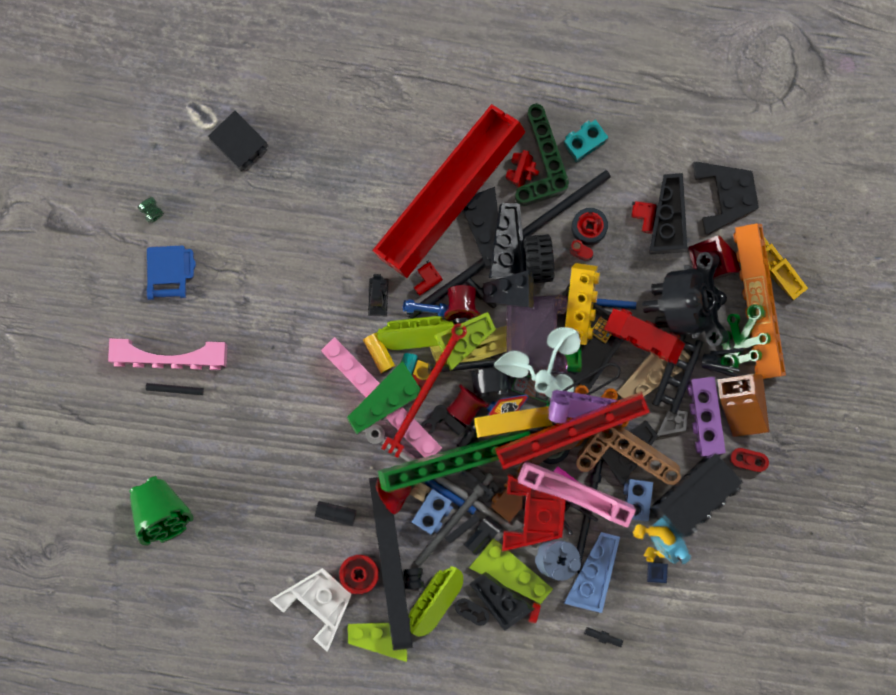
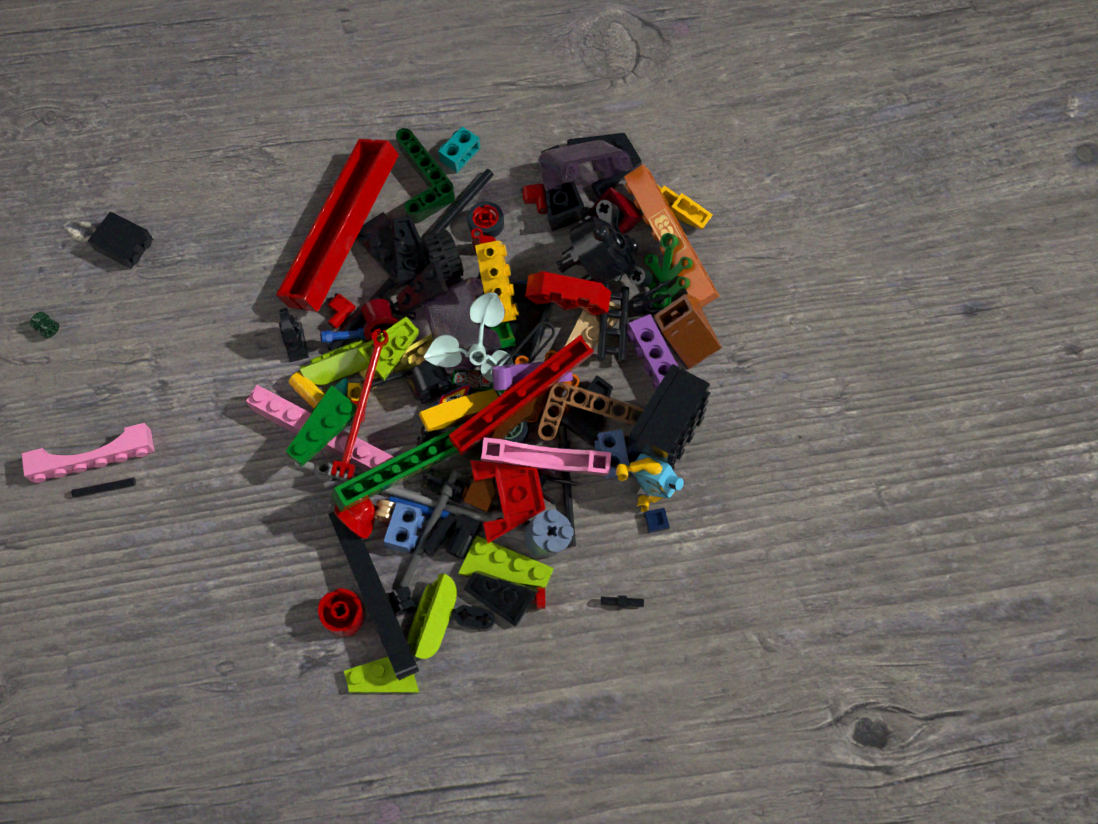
camera: 15 degrees left, 15 degrees down
(158, 512) = (107, 612): green cone -> none
(169, 266) = (75, 372): blue piece -> none
(323, 597) = (308, 650): white wing -> none
(335, 513) = (302, 559): black axle -> none
(439, 414) = (387, 430): black bar -> none
(466, 405) = (408, 412): dark red piece -> none
(525, 169) = (407, 187): red hips -> none
(593, 580) = (592, 547): medium blue wing -> none
(599, 331) = (526, 307): yellow tile -> none
(673, 423) = (625, 372): flat silver piece -> none
(682, 201) = (562, 163): none -> clear purple windscreen
(748, 460) = (716, 378): red plate -> none

